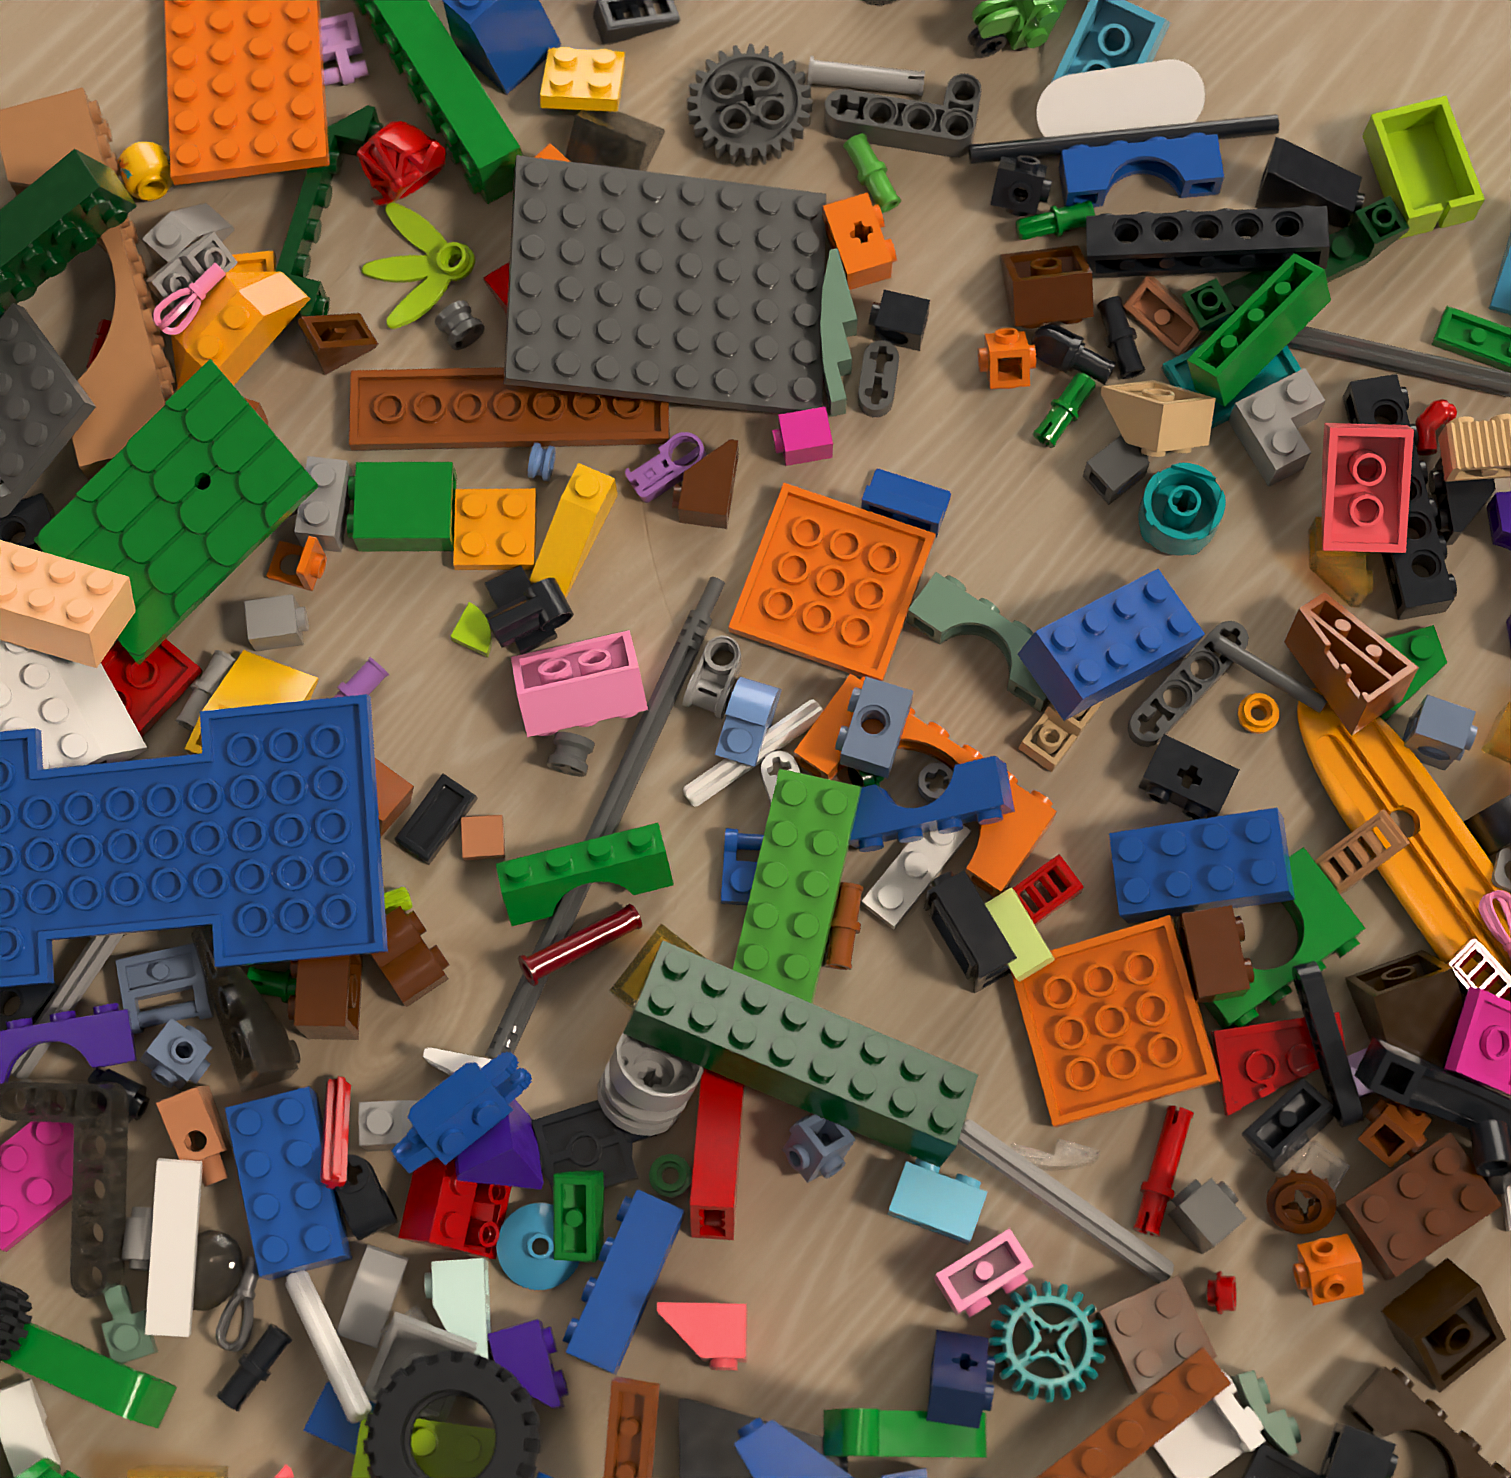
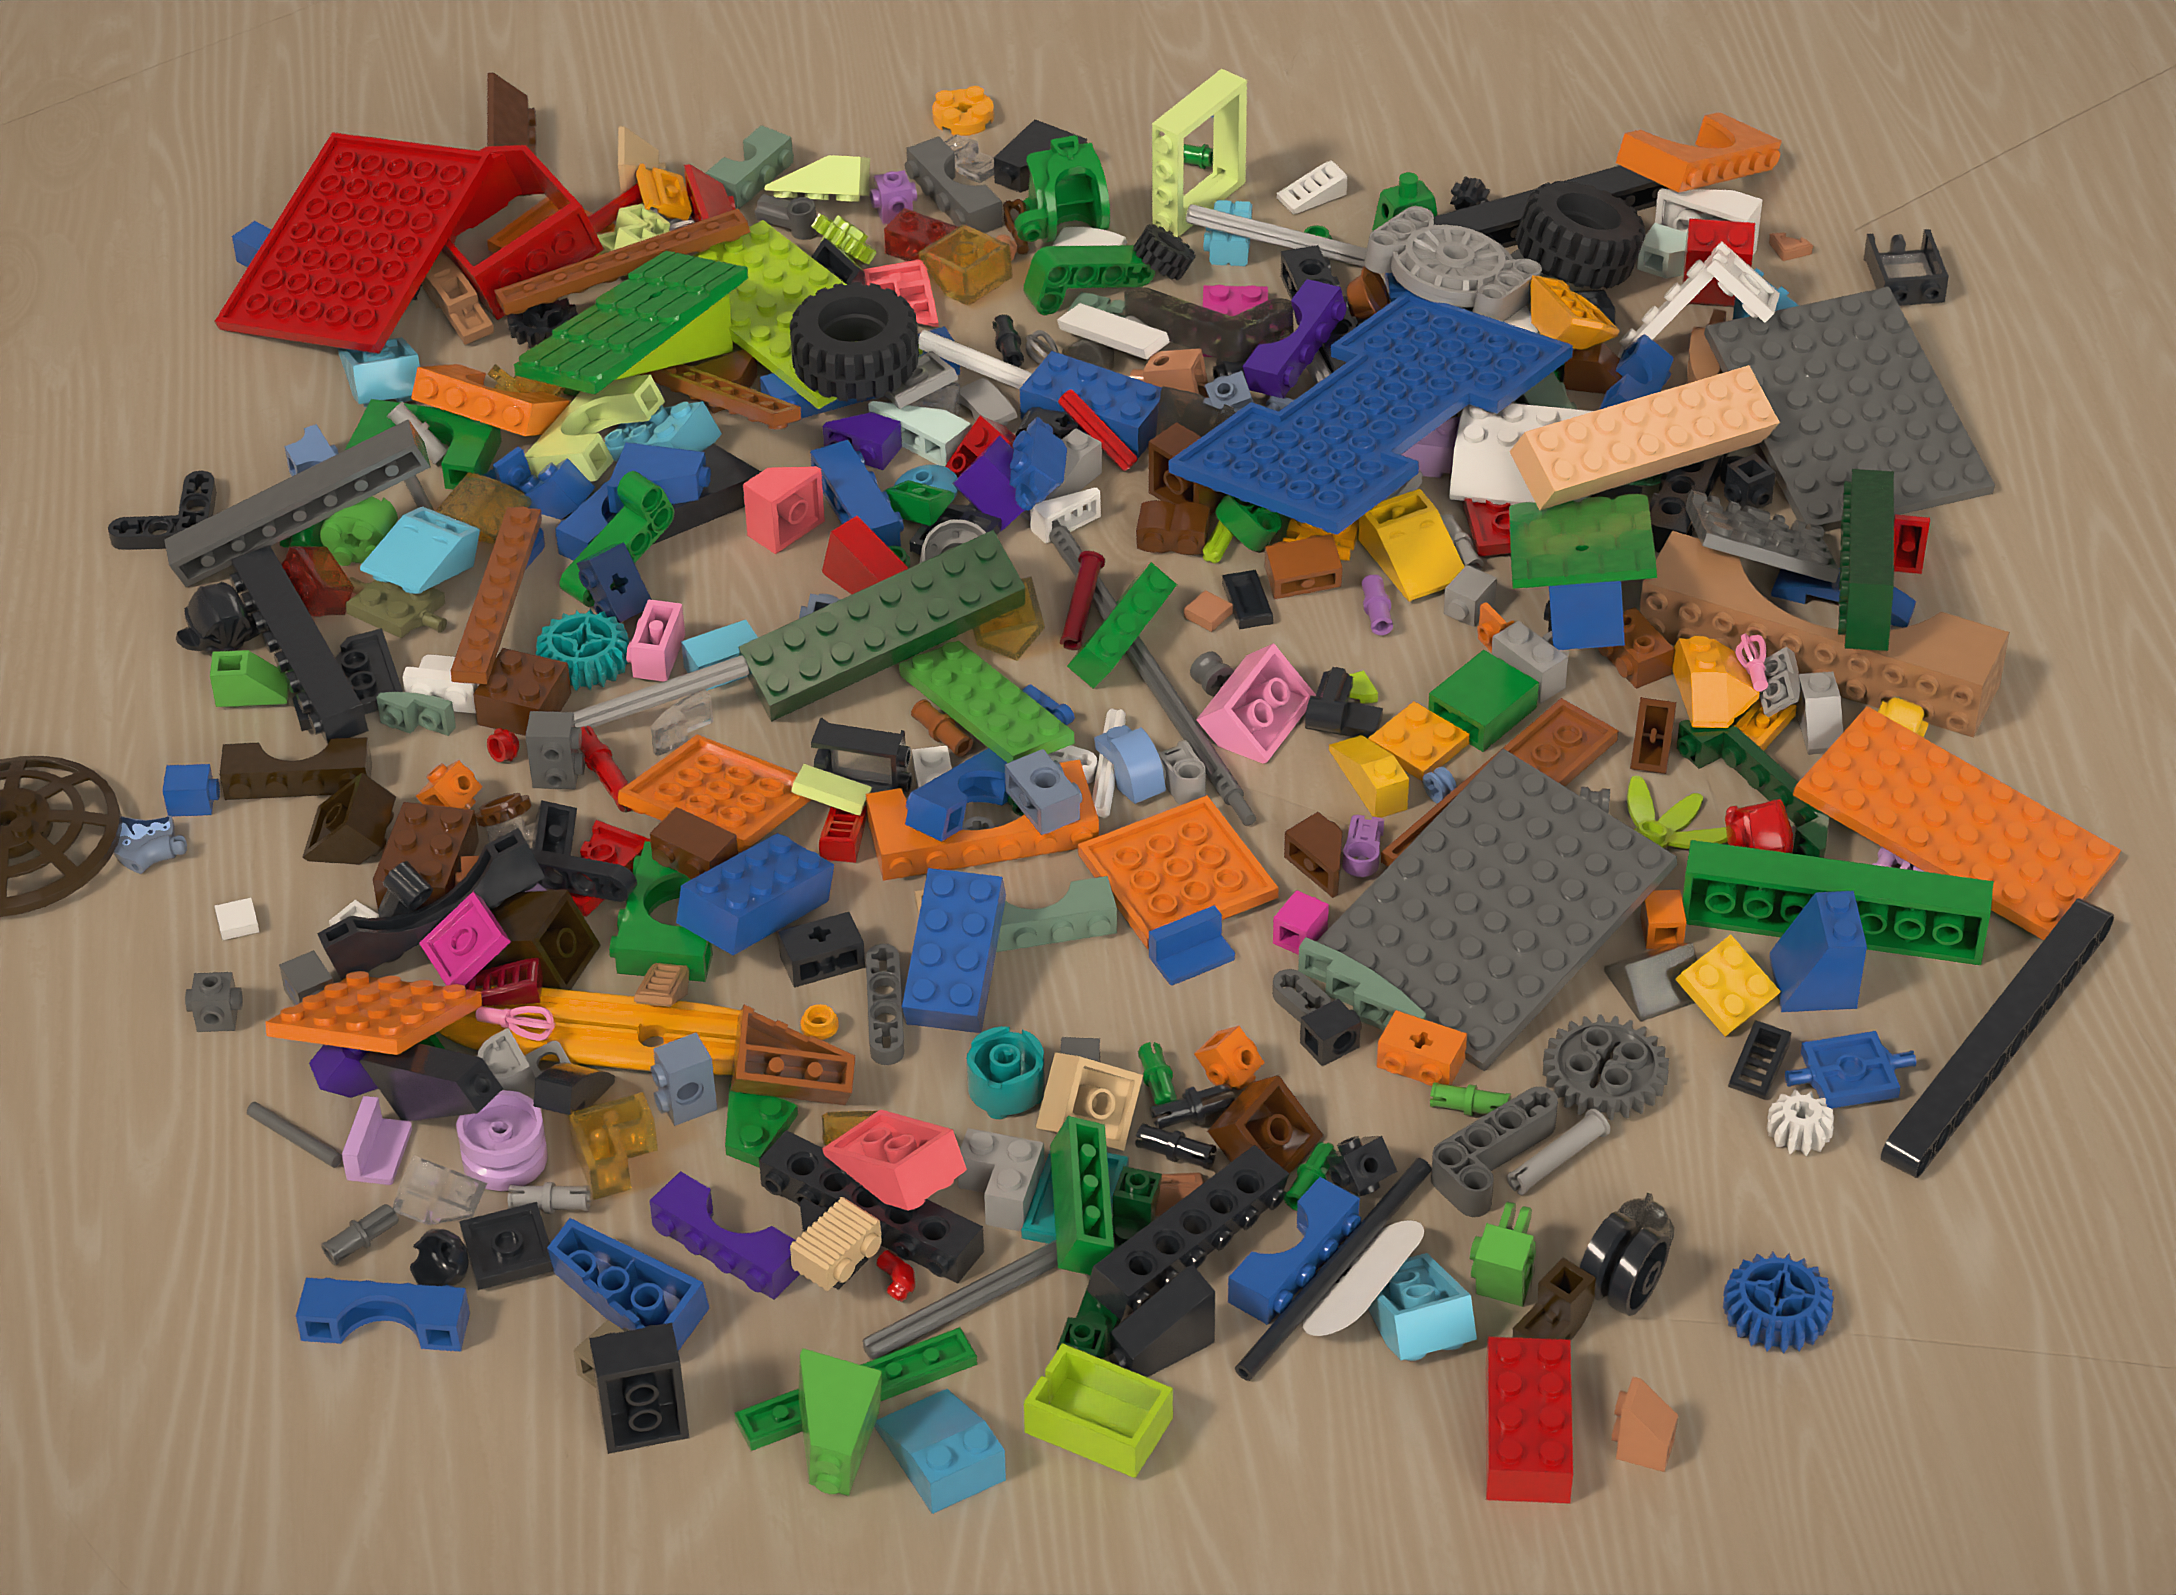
camera: 130 degrees right, 30 degrees down
(1270, 674) = (851, 1030): dark grey bar -> none

